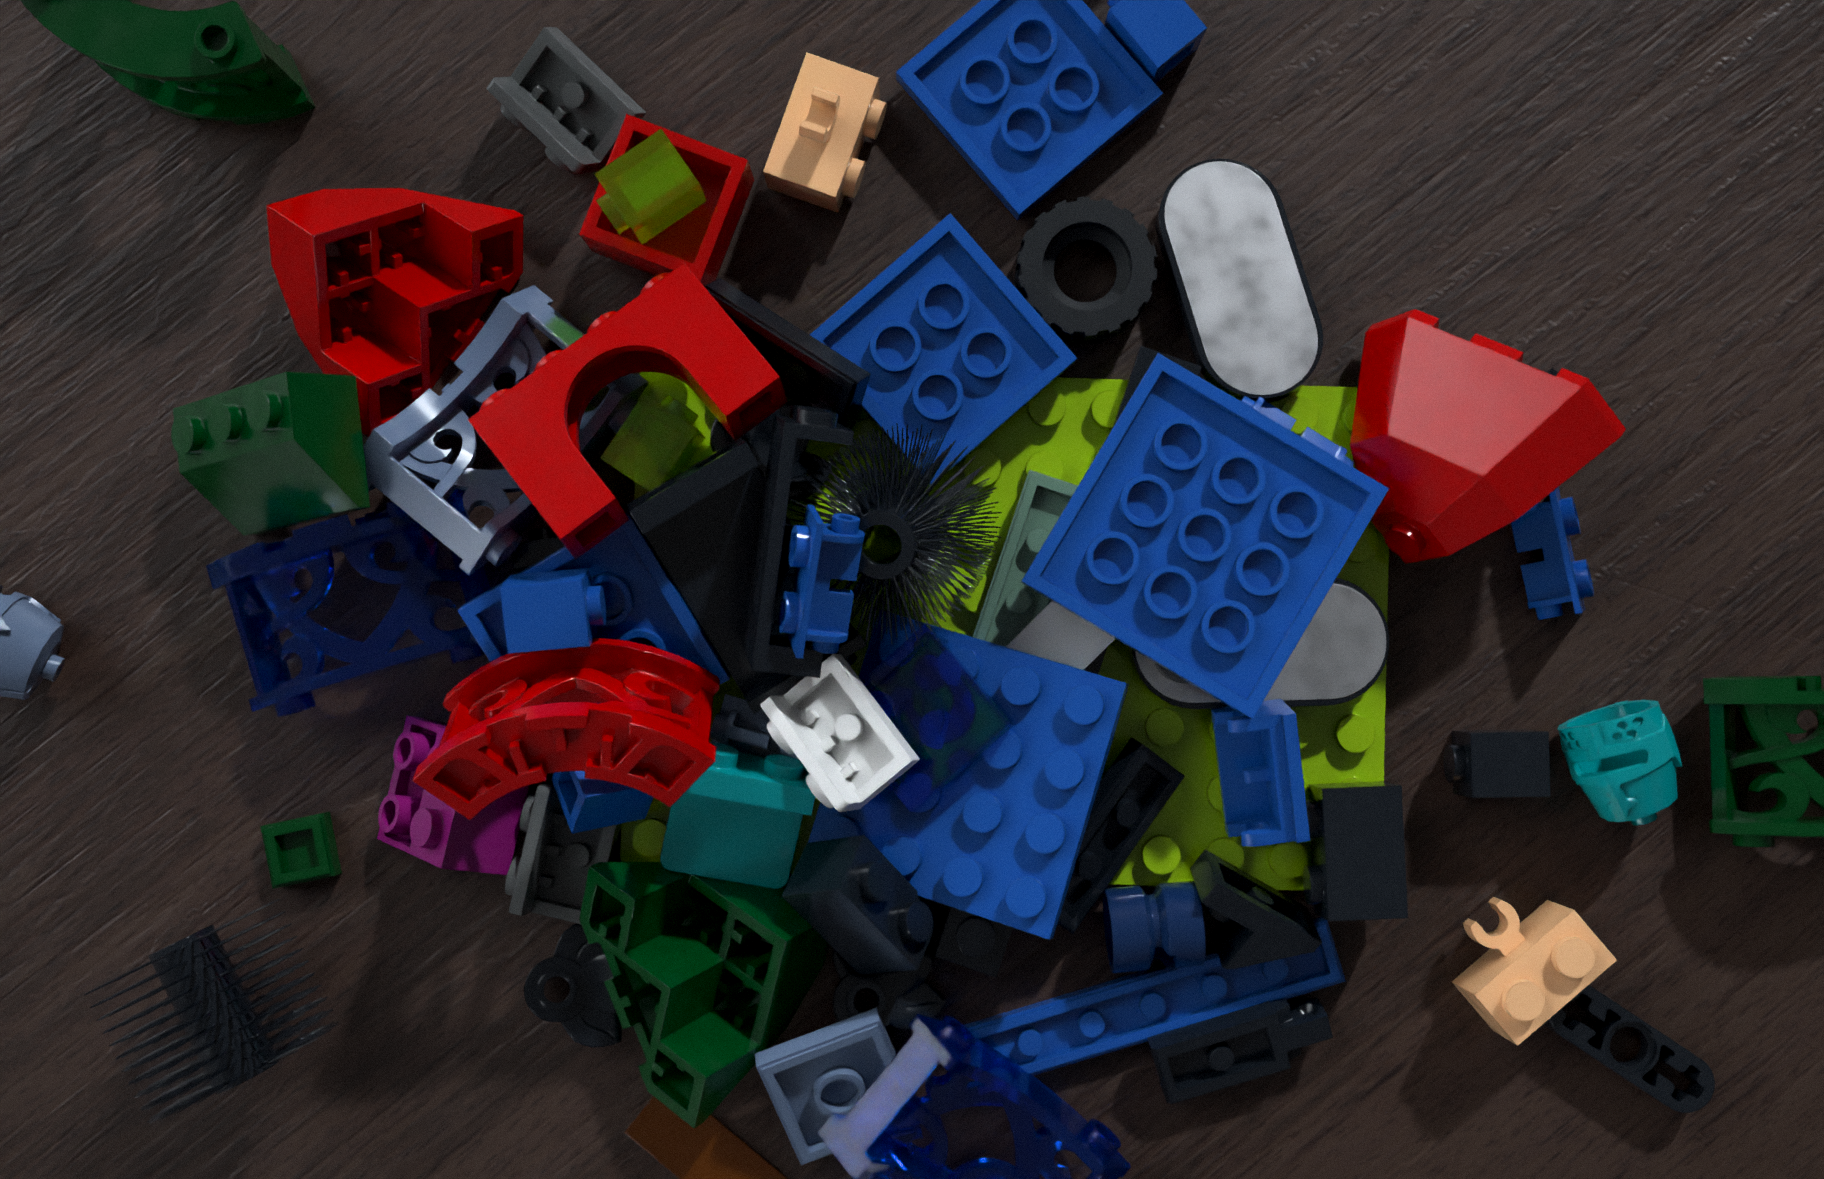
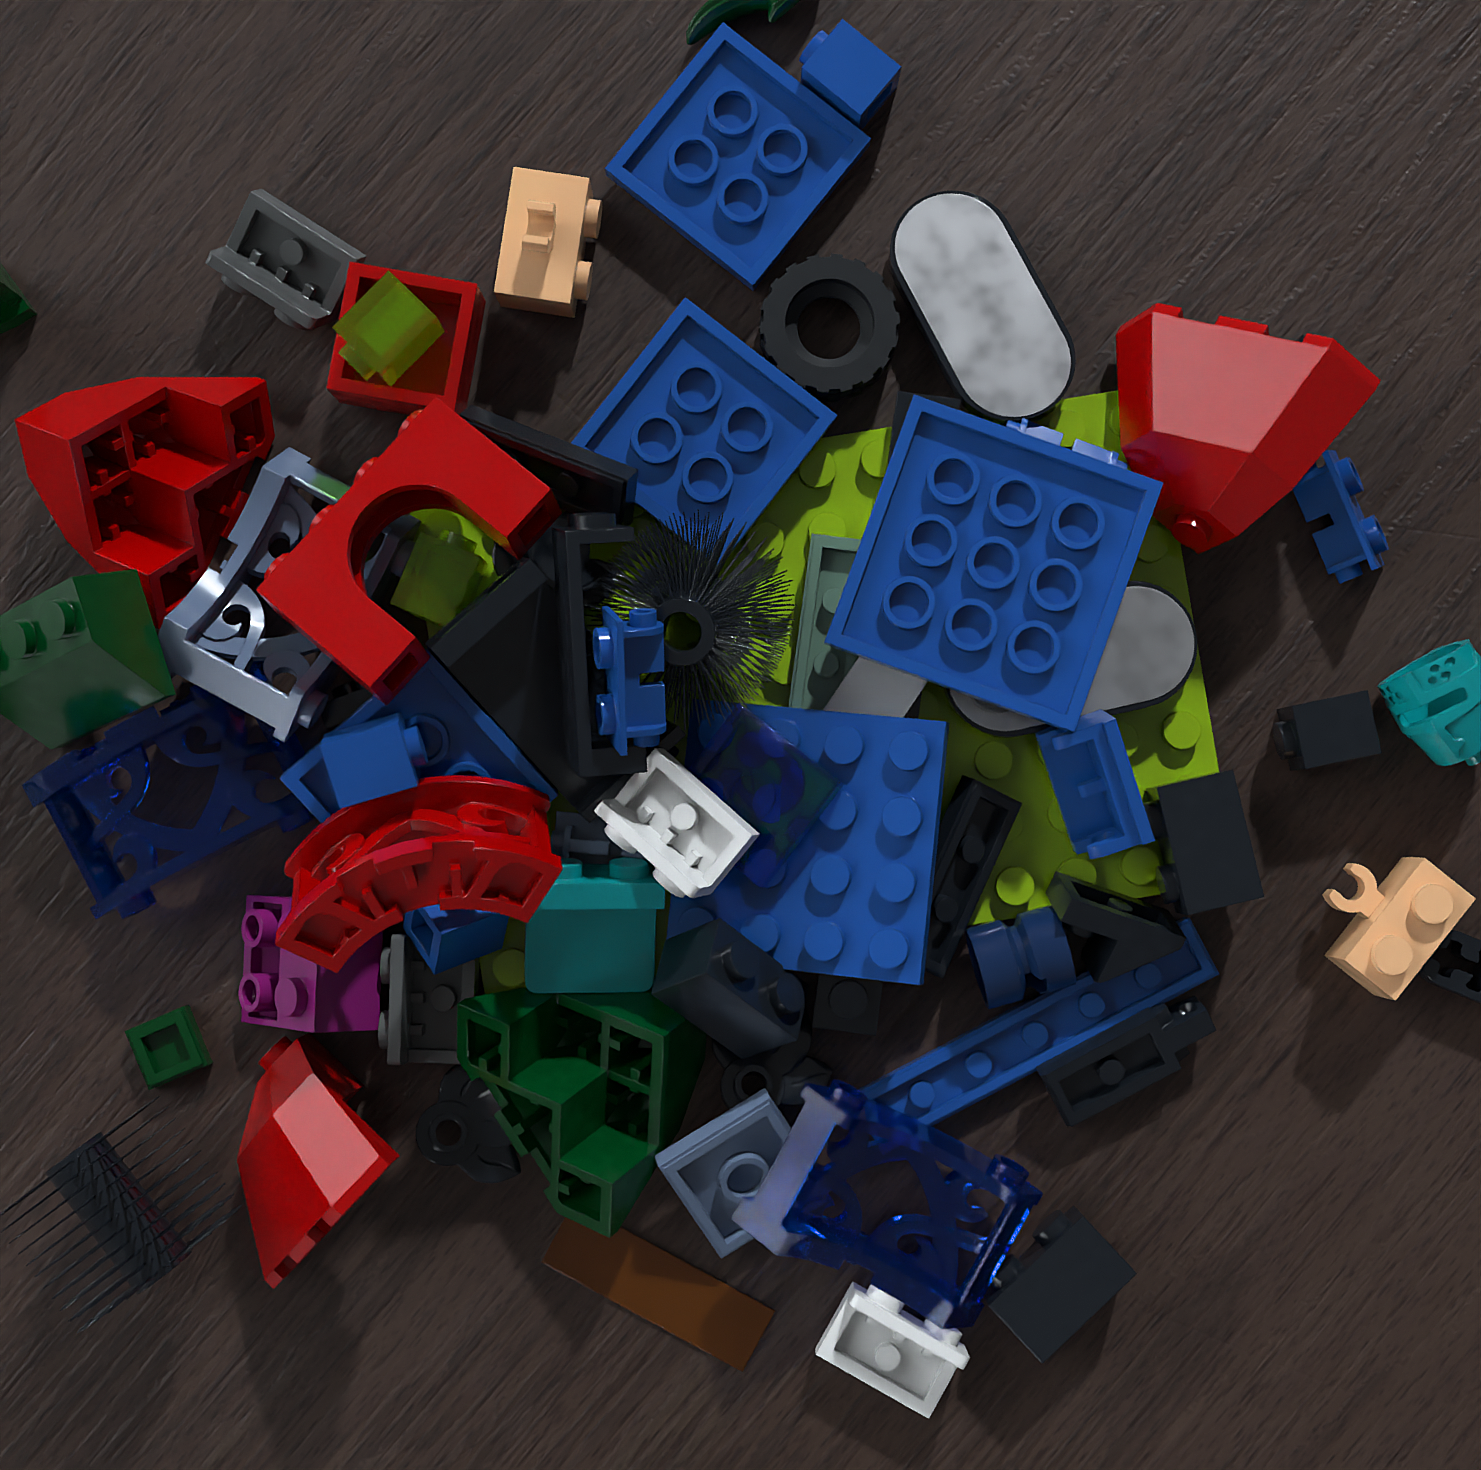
camera: 10 degrees left, 0 degrees up
(409, 983) = (304, 1153): none -> red brick

